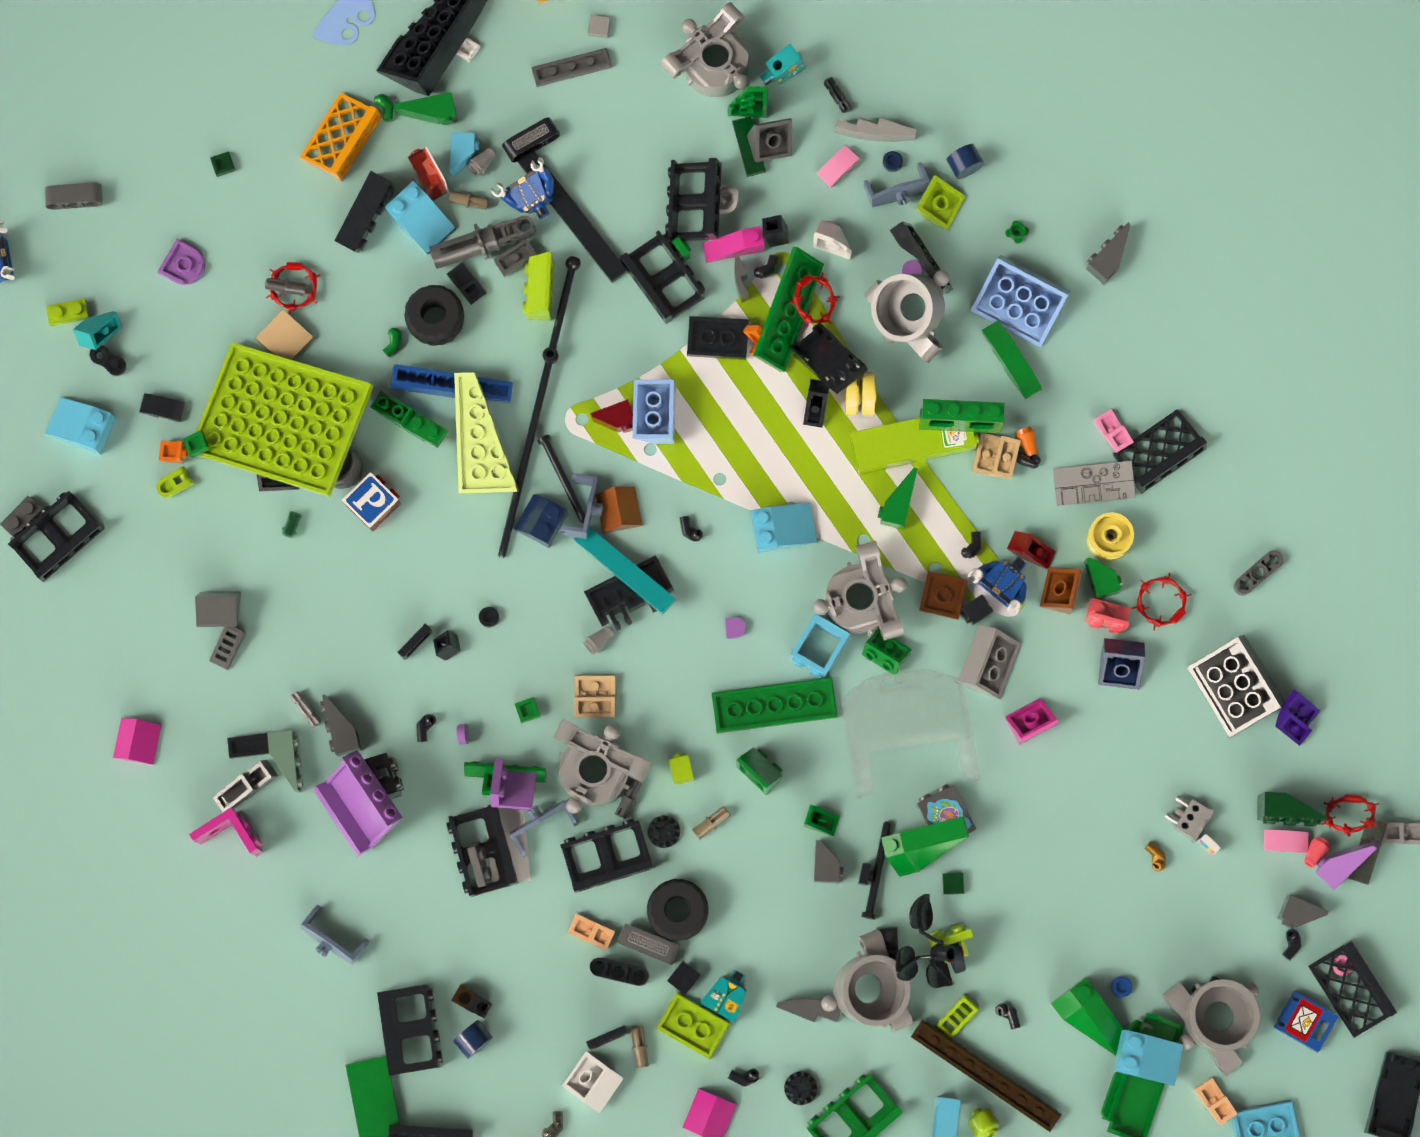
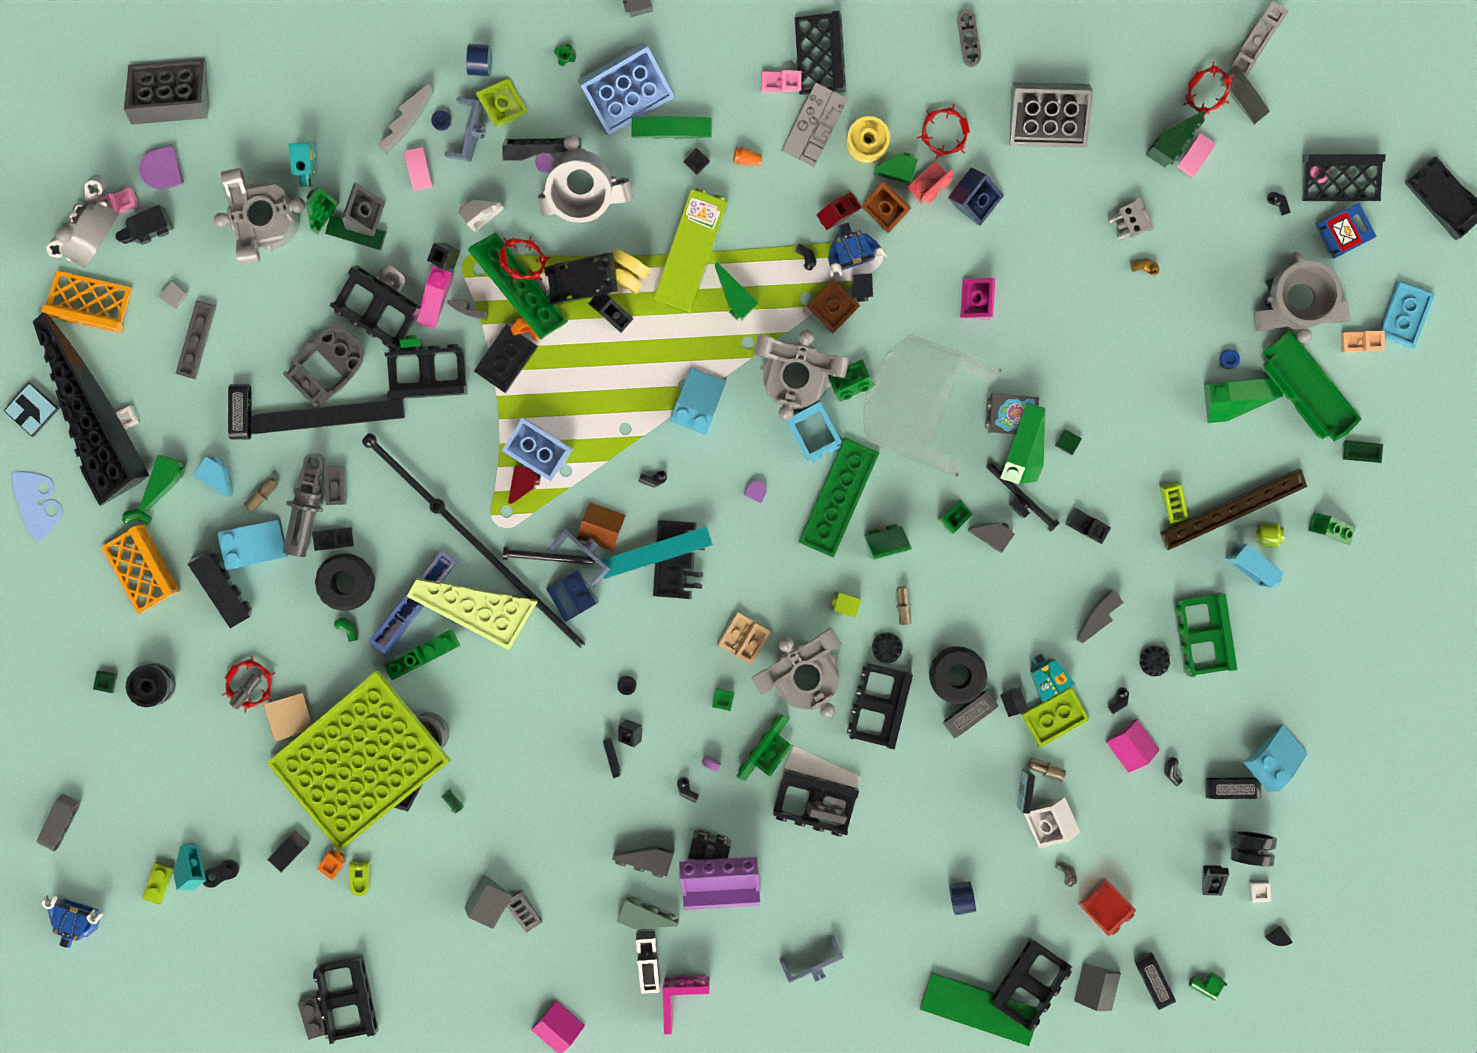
camera: 65 degrees left, 10 degrees up
(81, 425) = (263, 926): medium azure slope -> none
(182, 264) = (173, 764): medium lavender tile -> none
(196, 444) = (337, 842): green plate -> none
(232, 200) = (139, 688): none -> black wheel
(248, 746) = (615, 941): black tile -> none
(305, 709) = (613, 877): light grey axle -> none
(372, 501) = (473, 725): piece -> none
(396, 1031) = (920, 955): black window -> none
(428, 173) = (218, 516): clear red piece -> none
(471, 1001) = (930, 881): leg -> none
(481, 162) = (234, 465): light grey cone -> none
(512, 788) = (781, 750): medium lavender bracket -> none
(529, 192) = (285, 440): torso -> none
(536, 818) = (816, 744): sand blue piece -> none
(539, 287) = (373, 481): lime slope -> none
(591, 931) = (932, 753): light nougat slope -> none
(596, 641) = (700, 608): light grey cone -> none
(608, 972) = (975, 760): black beam -> none
(628, 799) = (845, 662): dark grey axle -> none
(636, 194) = (340, 350): none -> dark grey slope
(768, 269) = (472, 281): black arm -> none
(837, 95) = (355, 131): black axle -> none
(894, 994) = (1138, 554): light grey piece -> none
(937, 971) = (1126, 490): black plant -> none
(955, 934) = (1117, 473): lime plate -> none
(962, 416) = (698, 198): green window -> none
(989, 661) = (909, 302): light grey slope -> none
(996, 395) = (696, 161): none -> black plate
(996, 456) = (744, 191): tan slope -> none
(1009, 1013) = (1197, 460): black arm -> none
(1028, 462) = (761, 170): black arm -> none
(1148, 1057) = (1300, 374): medium azure slope -> none
(1209, 844) = (1163, 217): white tile -> none
(1296, 716) = (1105, 84): dark purple slope -> none
(1299, 912) = (1259, 181): dark grey slope -> none
(1317, 850) = (1219, 134): coral cone -> none
(1343, 863) = (1244, 121): medium lavender slope -> none

